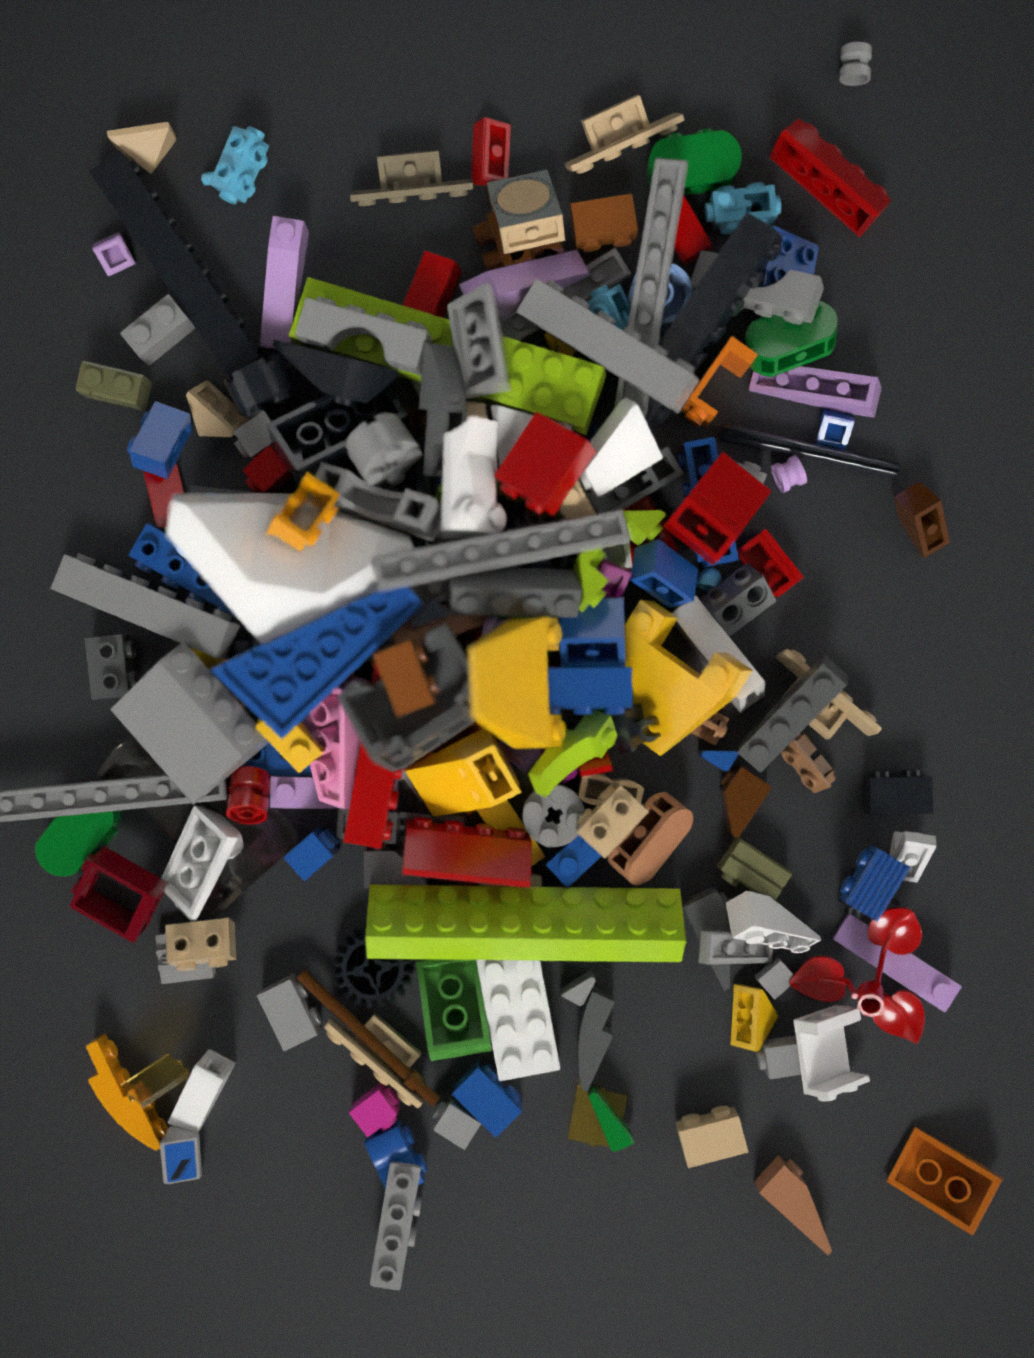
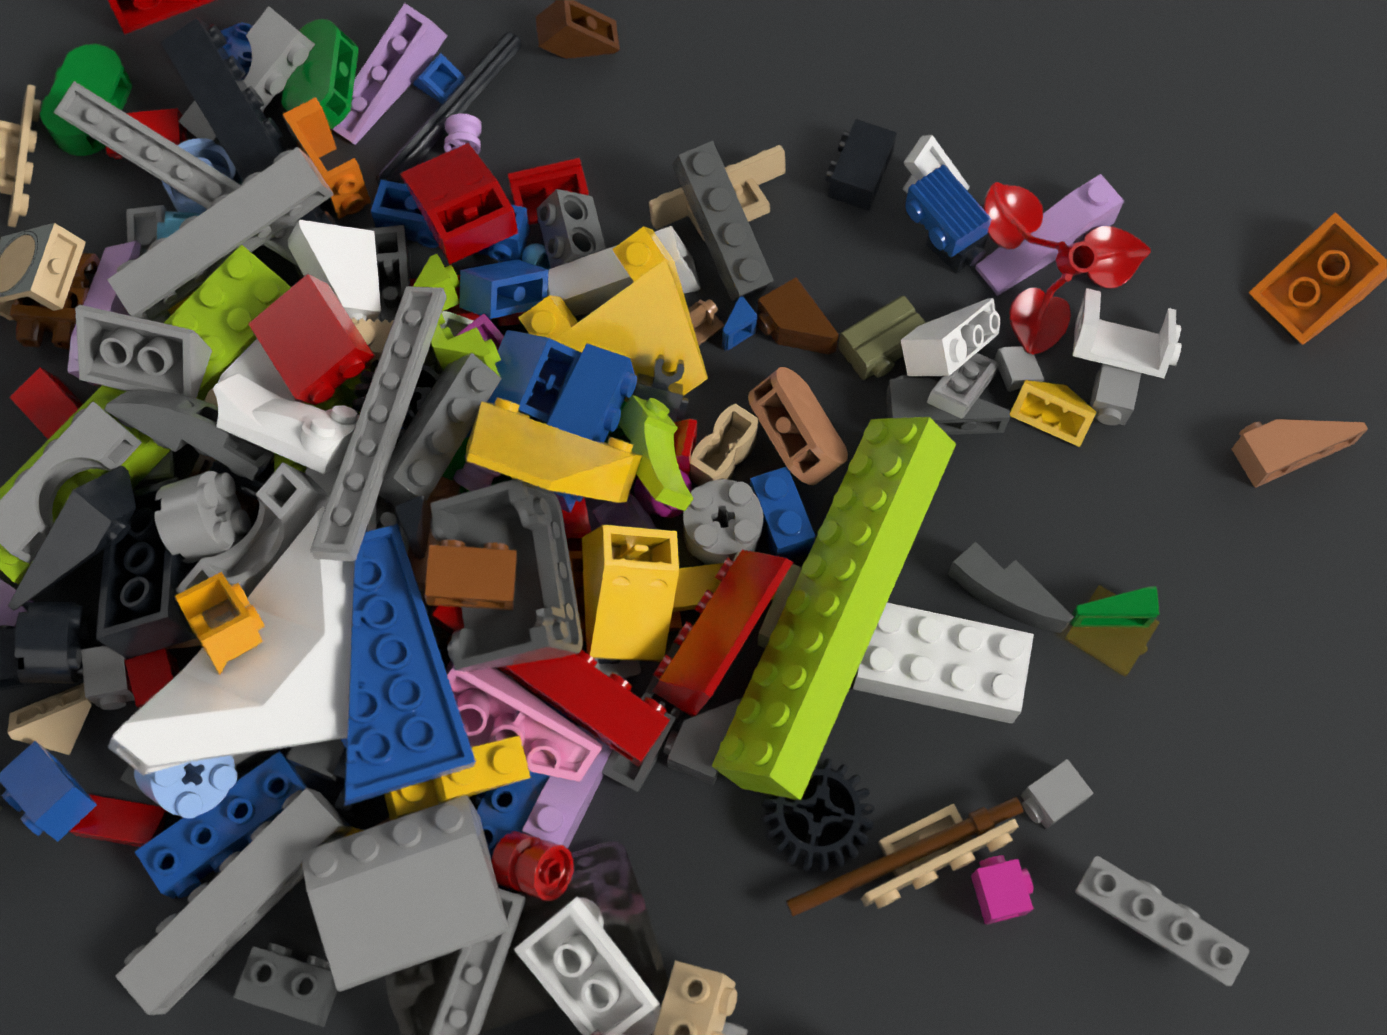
camera: 65 degrees left, 20 degrees down
(290, 1012) = (833, 945): light grey brick -> none
(313, 852) = (641, 819): blue brick -> none
(394, 1145) = (1055, 893): blue brick -> none
(453, 1008) = (910, 738): bright green slope -> none
(488, 1098) = (1039, 743): blue brick -> none
(579, 989) = (945, 580): light grey slope -> none
(603, 222) = (93, 203): dark orange brick -> none
(610, 819) = (754, 446): tan brick -> none
(711, 1136) = (1180, 503): tan brick -> none
(730, 205) = (153, 78): medium azure brick -> none
(814, 773) = (793, 241): medium nougat hinge -> none

